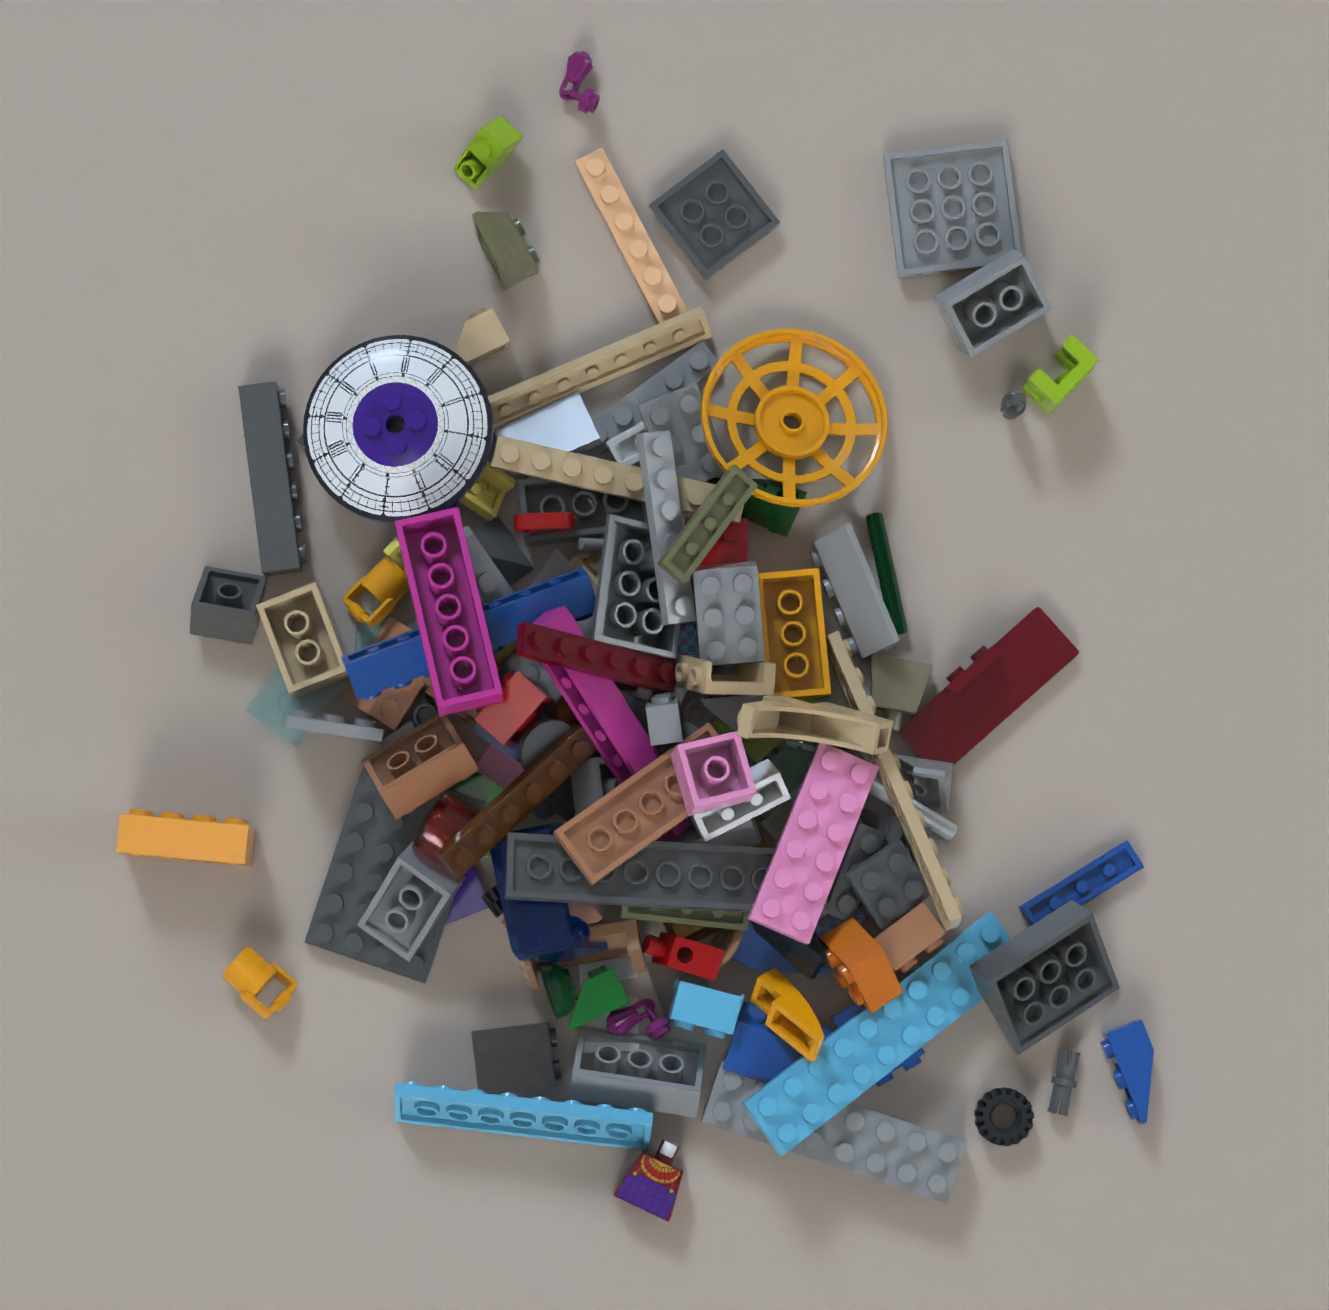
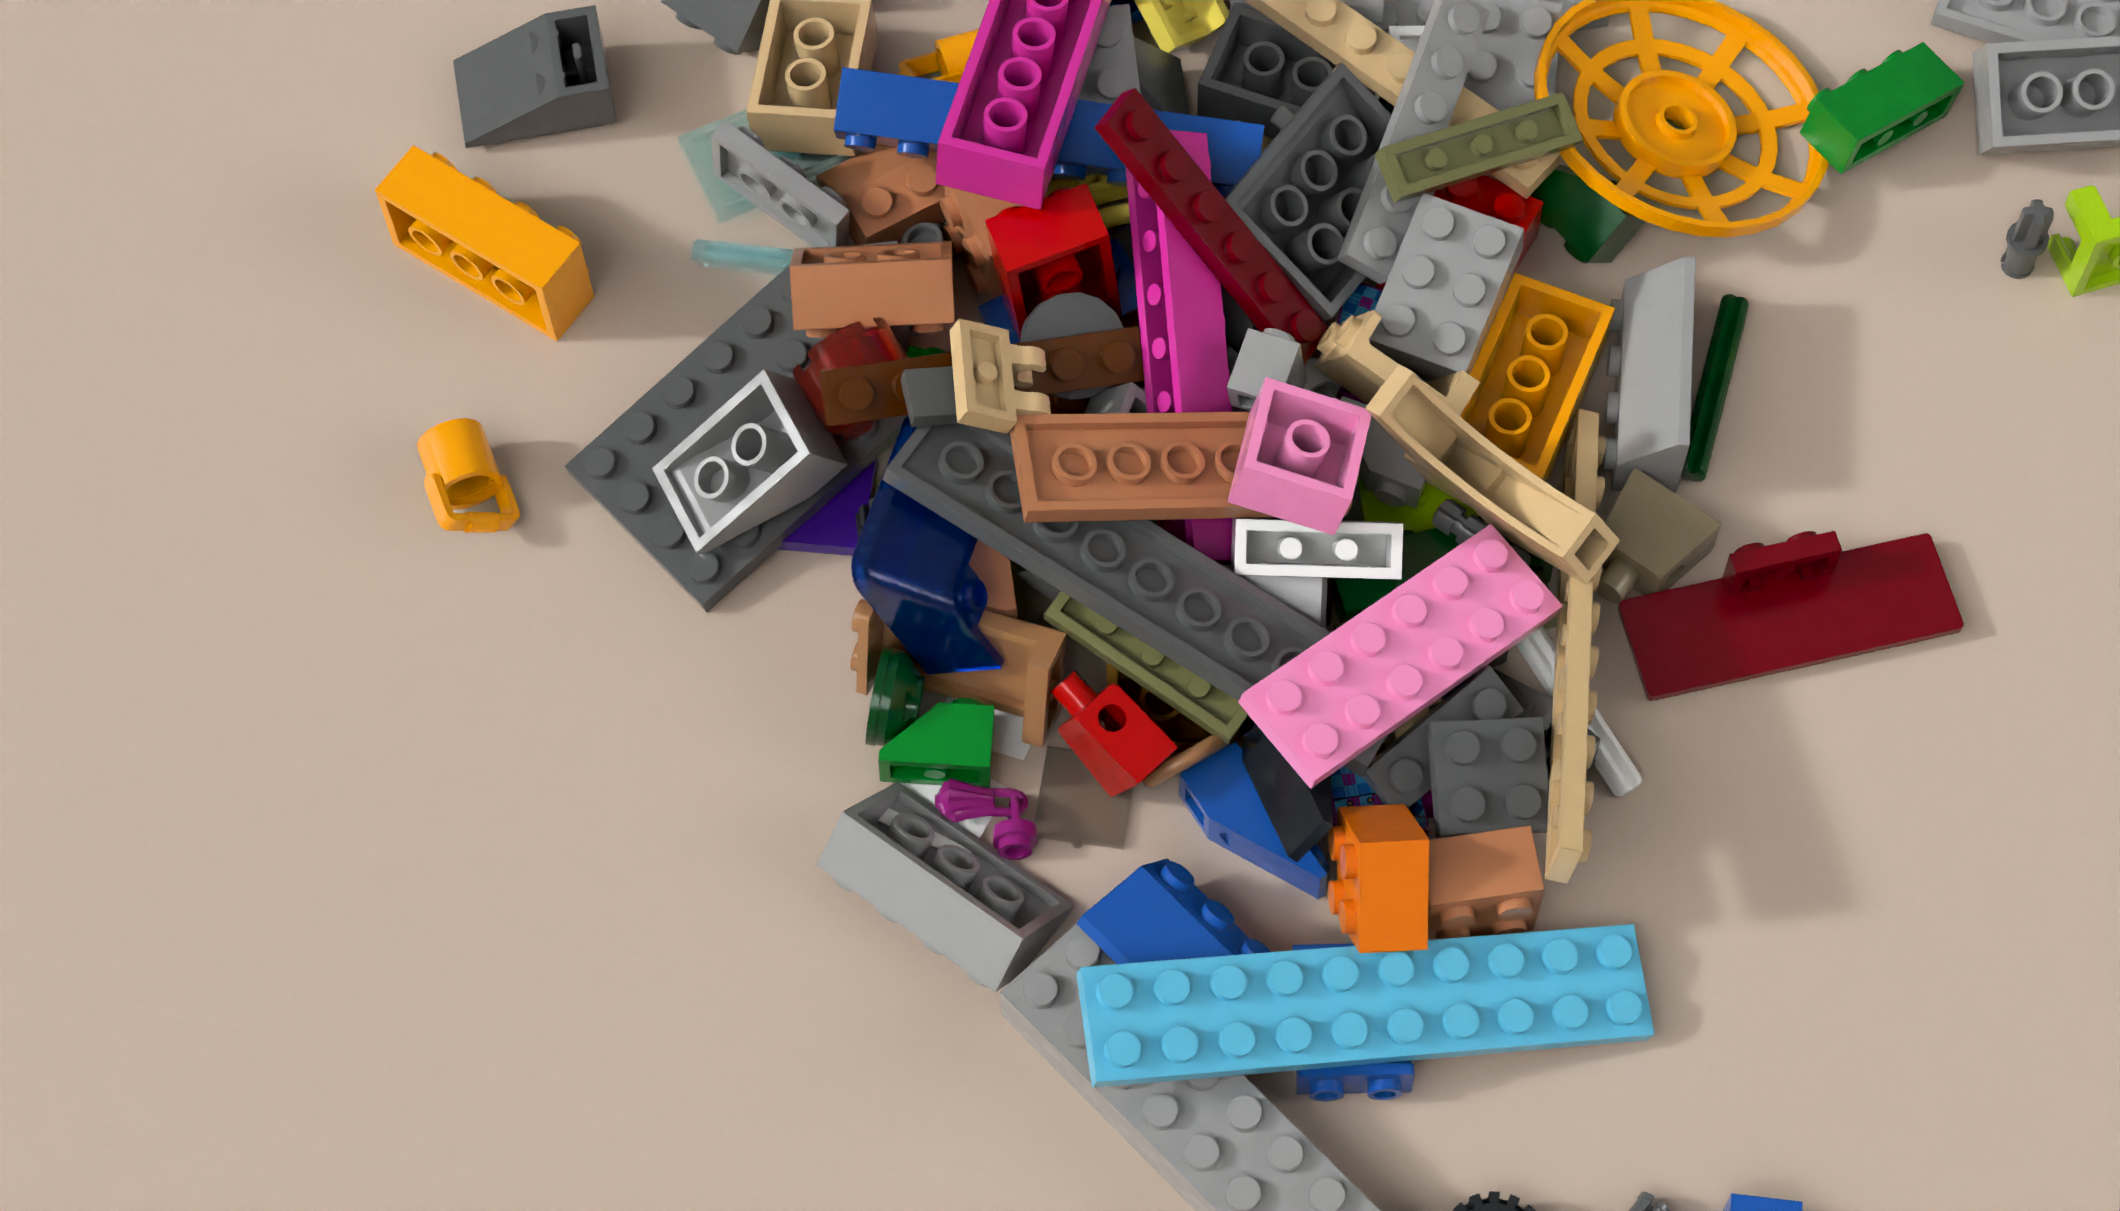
camera: 35 degrees right, 20 degrees down
(147, 720) = (536, 80): none -> dark grey slope
(331, 768) = (740, 256): none -> clear light blue tile
(506, 840) = (929, 396): none -> dark grey tile
(515, 1058) = (771, 768): black panel -> none
(522, 1116) = (733, 854): medium azure plate -> none
(528, 818) = (986, 374): none -> tan plate
(544, 522) = (1240, 61): red beam -> none
(653, 1182) = (872, 1057): torso -> none
(704, 1008) = (1097, 827): medium azure brick -> none
(788, 1013) = (1224, 886): light orange slope -> none
(897, 356) = (1880, 107): none -> green brick
(928, 780) = (1632, 688): light grey slope -> none
(1045, 975) = (1674, 1057): dark grey slope -> none
(1085, 883) = (1799, 968): blue tile -> none

